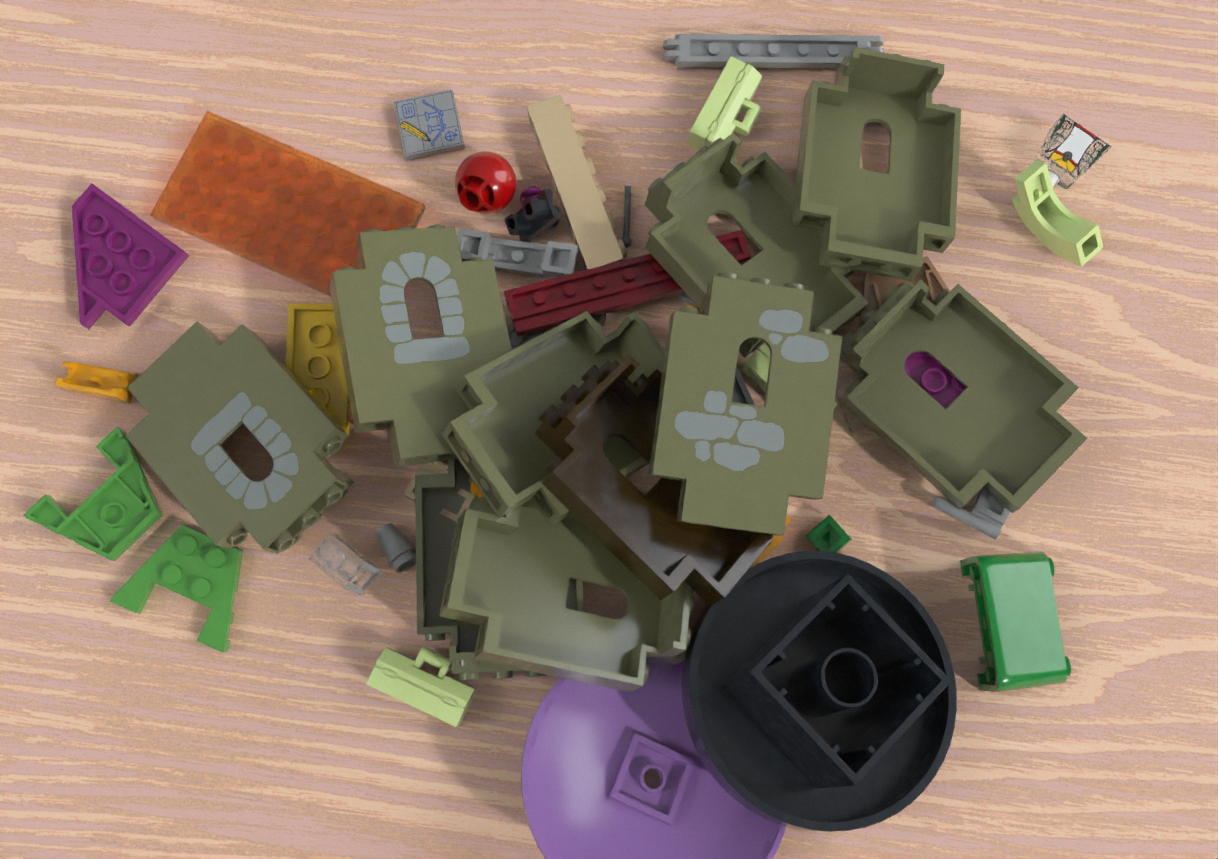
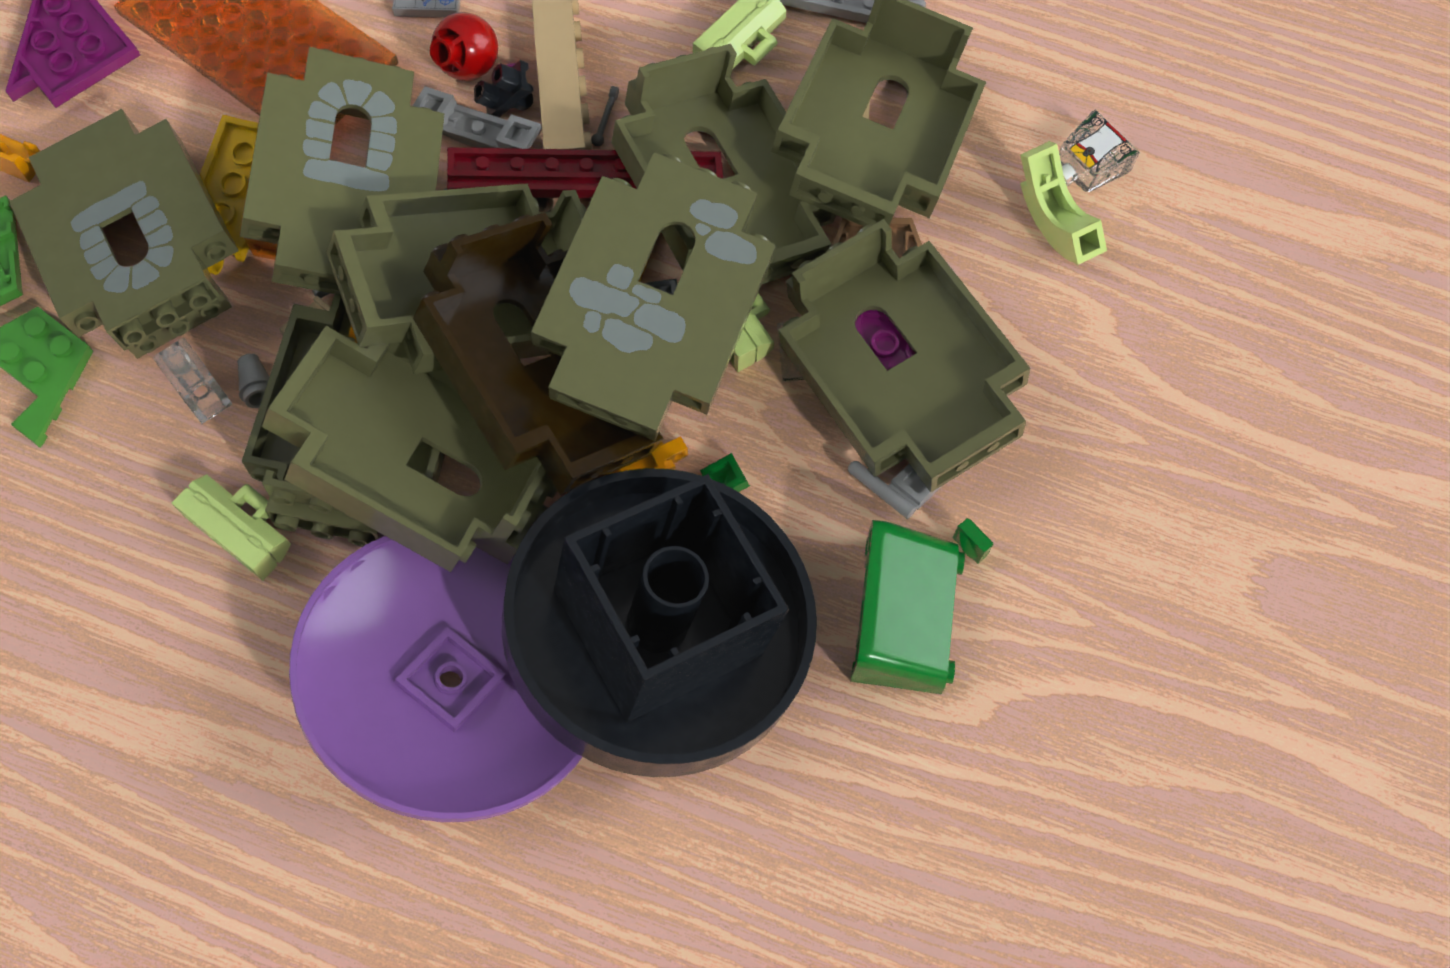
camera: 10 degrees right, 10 degrees down
(1054, 544) = (972, 540): none -> green tile

